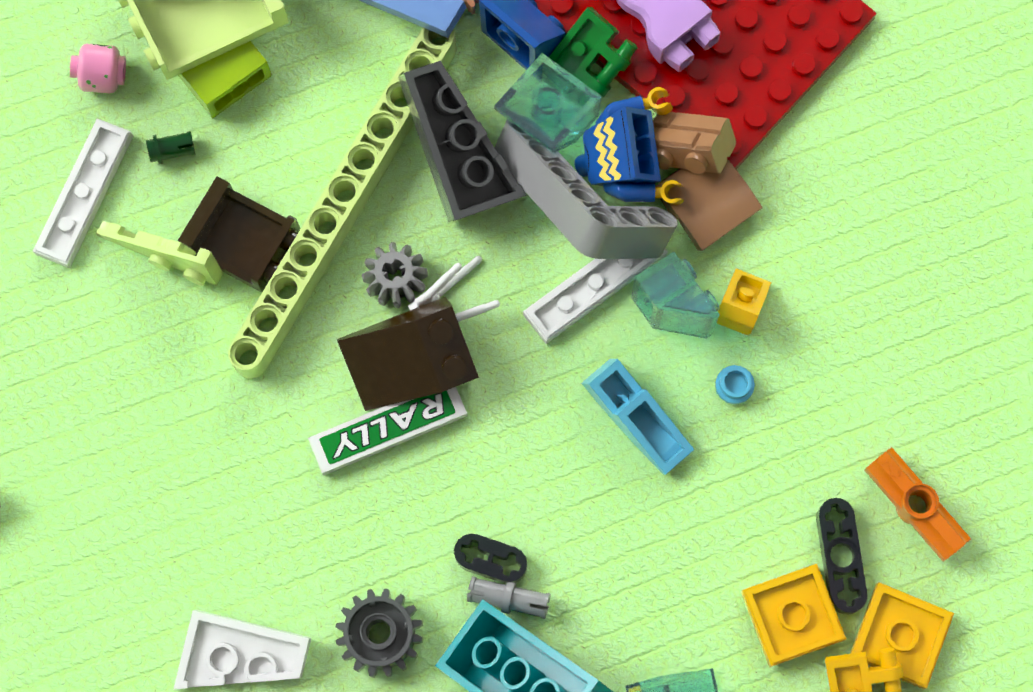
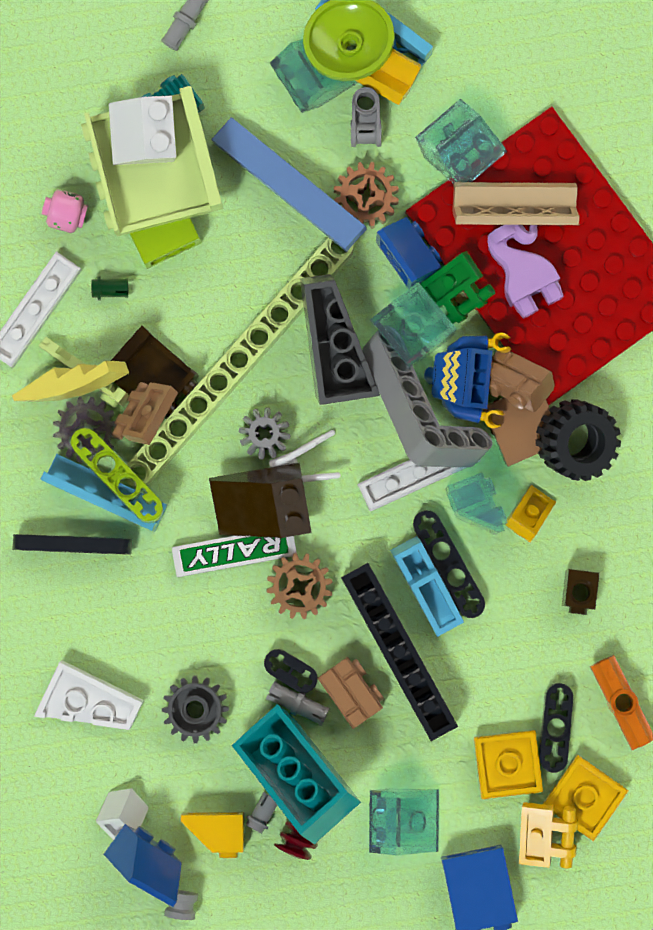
camera: 15 degrees right, 10 degrees up
(133, 263) = (69, 383): none -> light yellow slope
(181, 461) = (72, 544): none -> black beam
(187, 314) = (83, 416): none -> gear
(211, 390) = (88, 486): none -> medium azure fence
(223, 354) = (118, 474): none -> lime beam
(240, 275) = (144, 412): none -> medium nougat plate
(466, 435) = (306, 597): none -> medium nougat gear
(573, 566) = (351, 692): none -> medium nougat brick
(622, 501) = (399, 652): none -> black brick
(662, 380) = (453, 561): none -> black beam
(734, 384) = (507, 577): medium azure plate -> none
(807, 192) = (599, 446): none -> black tyre
(834, 363) = (590, 581): none -> dark brown brick

